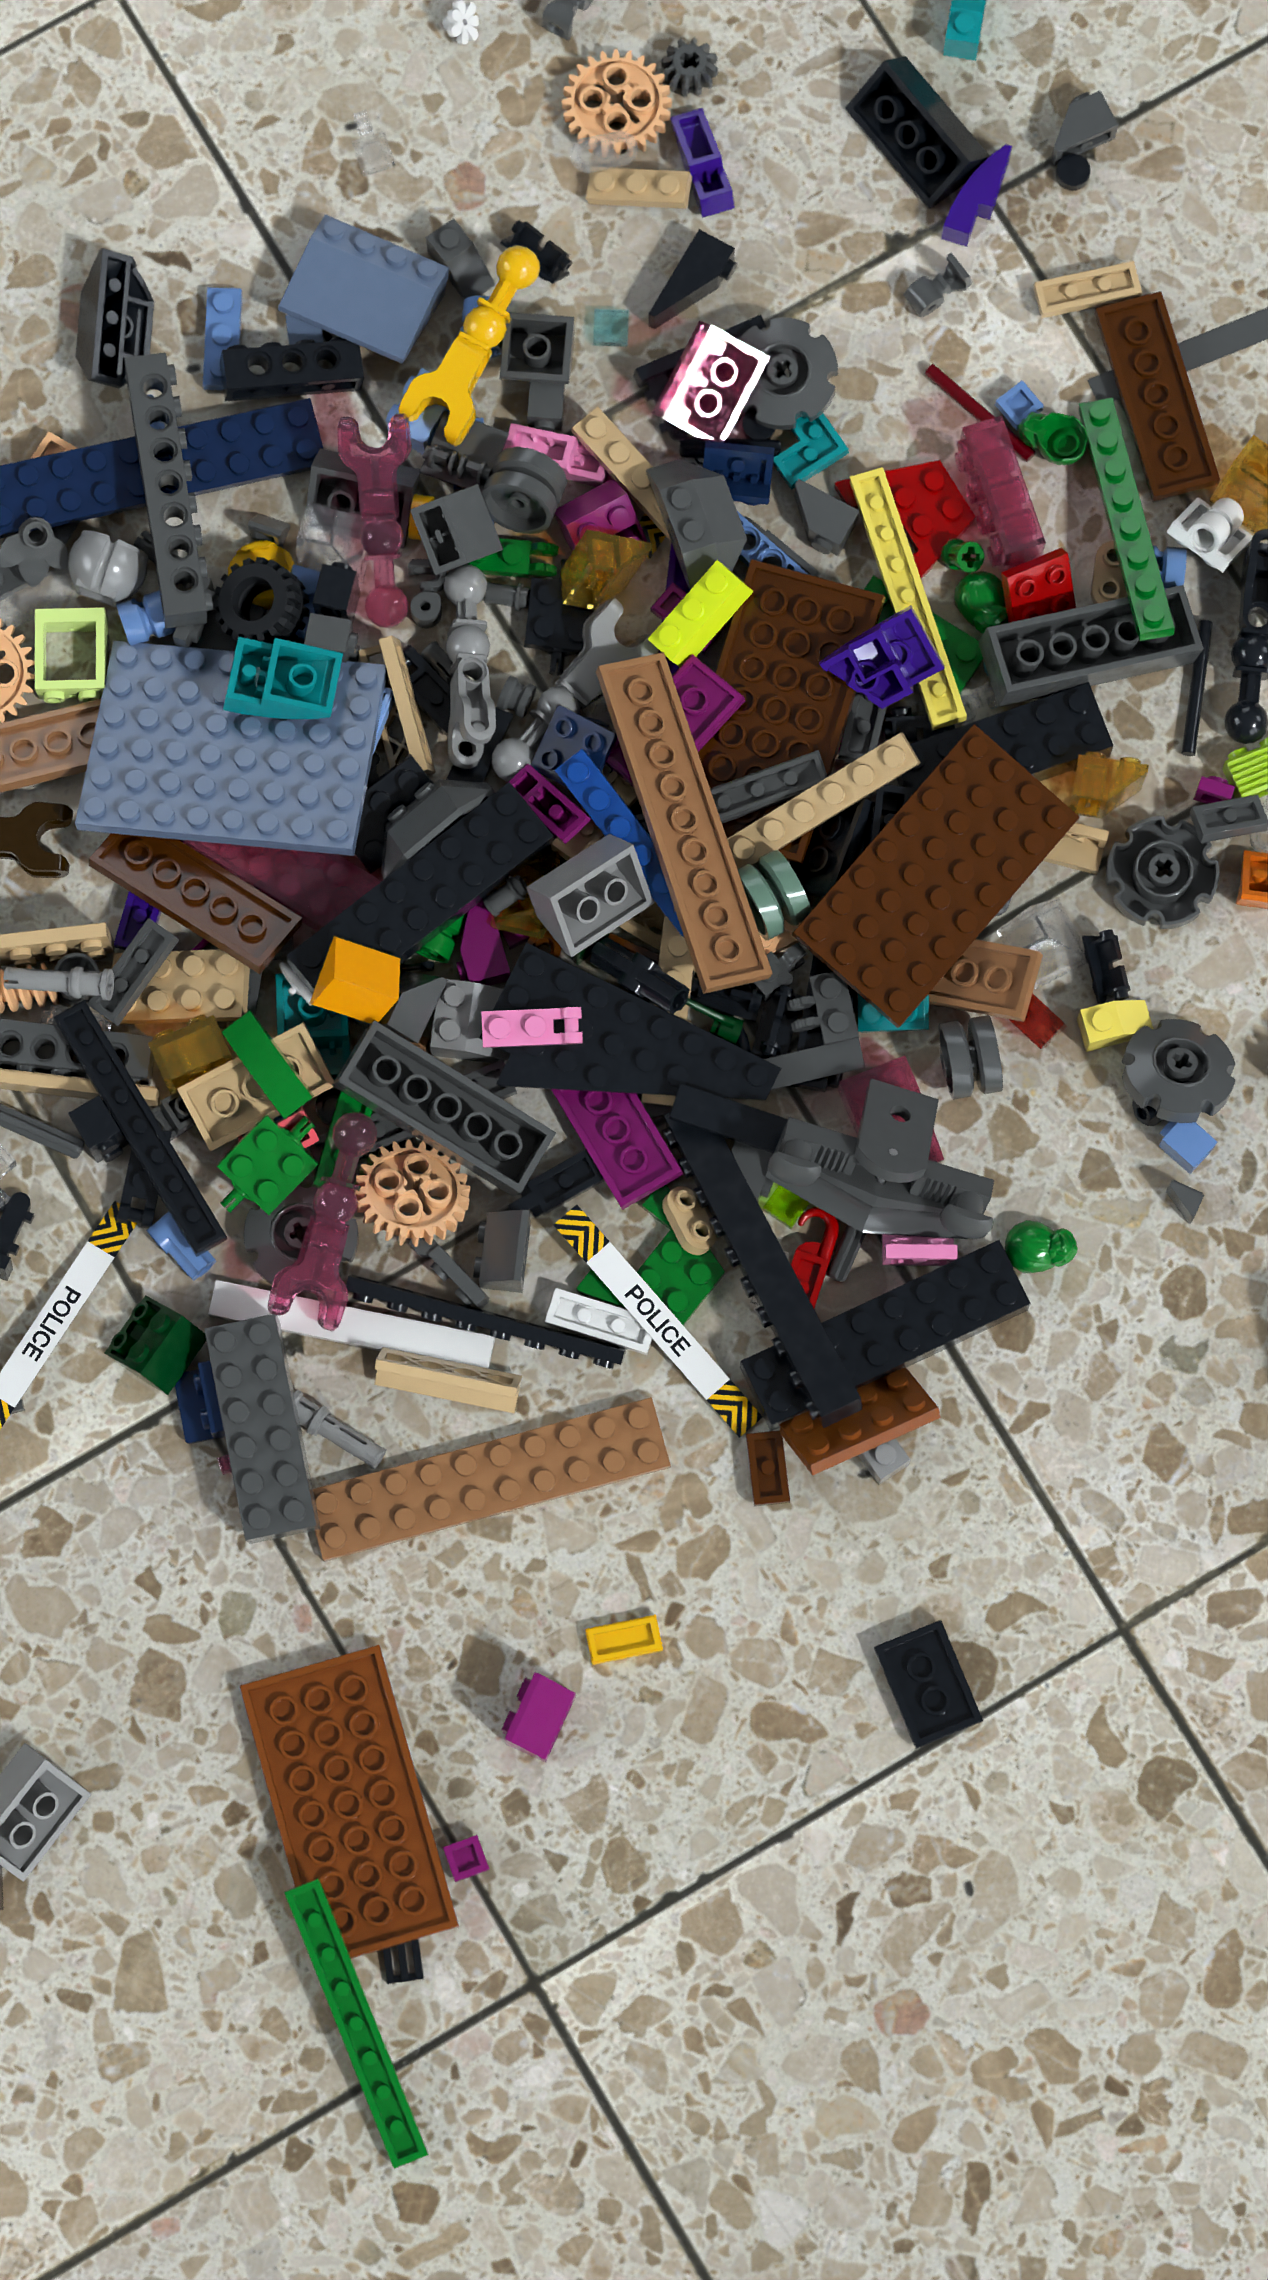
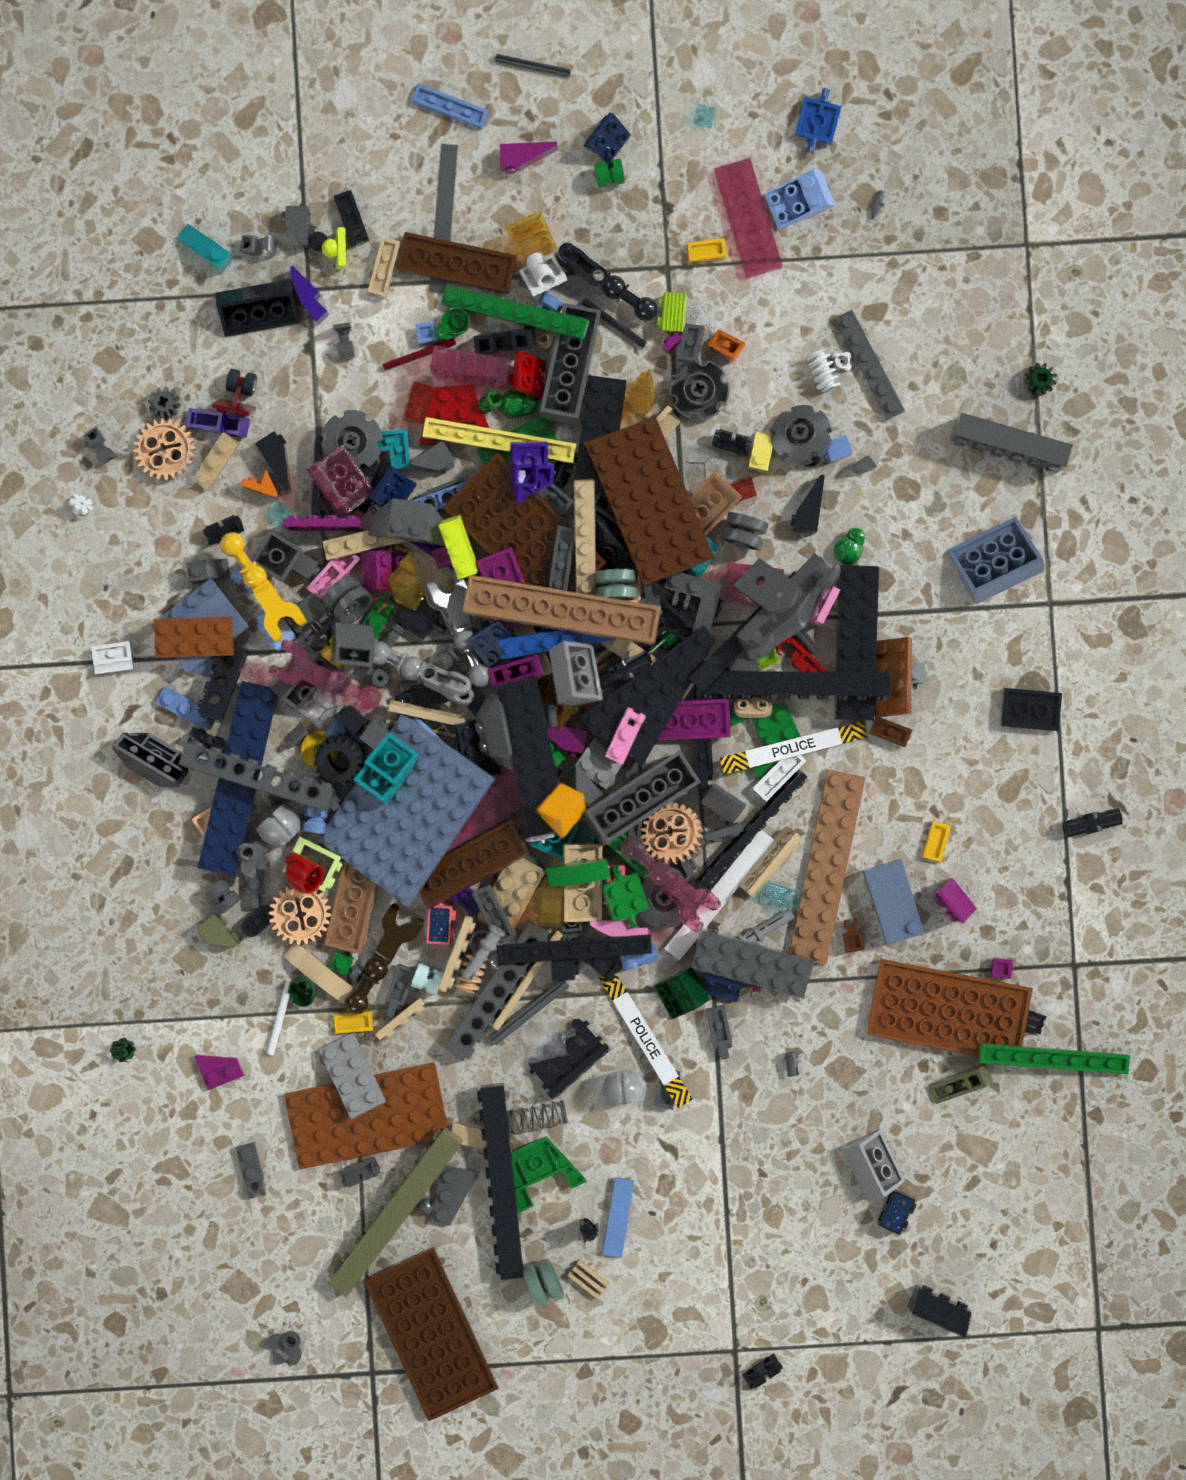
camera: 60 degrees left, 10 degrees up
(49, 631) = (300, 872): none -> red helmet
(75, 899) = (440, 925): none -> dark blue brick
(125, 1439) = (719, 1030): none -> dark grey hinge
(128, 1587) = (791, 1064): none -> dark grey pin
(188, 389) = (203, 737): none -> black hinge
(211, 1185) = (618, 928): none -> bright pink slope
(236, 1889) = (961, 1083): none -> olive slope
(245, 188) = (112, 657): none -> white plate
(340, 284) = (193, 637): none -> dark orange plate
(373, 1248) = (688, 866): none -> dark grey bracket
(388, 1583) = (853, 939): none -> reddish brown plate
(404, 1423) = (780, 893): none -> clear light blue piece
(485, 1616) = (893, 902): none -> sand blue brick
(630, 402) = (314, 523): none -> magenta plate
(640, 282) = (266, 487): none -> orange slope
(777, 165) = (237, 384): none -> plate
(791, 1886) = (1092, 822): none -> black piece
(899, 446) = (418, 403): none -> clear red hinge
(1012, 73) = (251, 244): none -> dark grey leg
(1063, 1147) = (808, 513): none -> black slope
(1071, 528) = (505, 341): none -> black arch
(1074, 197) = (336, 248): none -> neon yellow tile
(1138, 201) = (350, 217): none -> black plate
(1145, 1498) = (996, 560): none -> sand blue slope

